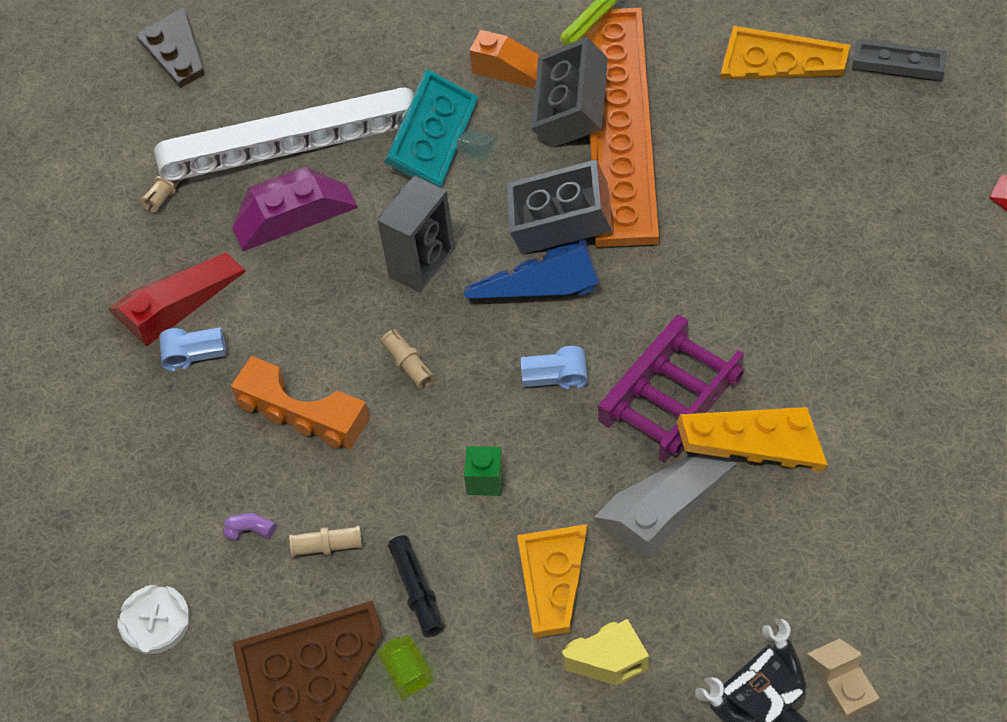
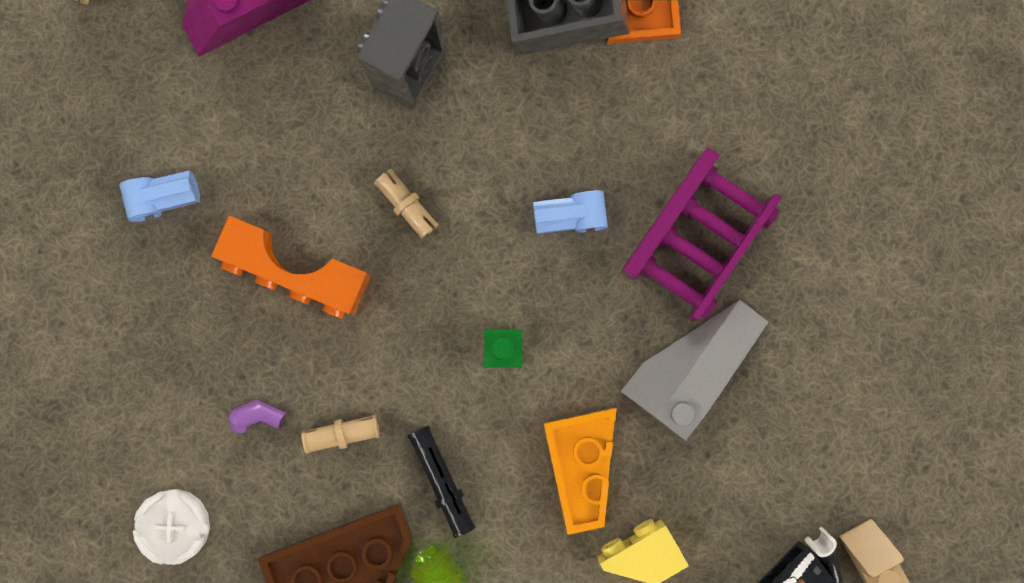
camera: 10 degrees left, 30 degrees up
(169, 300) = (118, 130): red wedge -> none
(562, 272) = (562, 88): blue wedge -> none
(756, 434) = (802, 295): light orange wing -> none

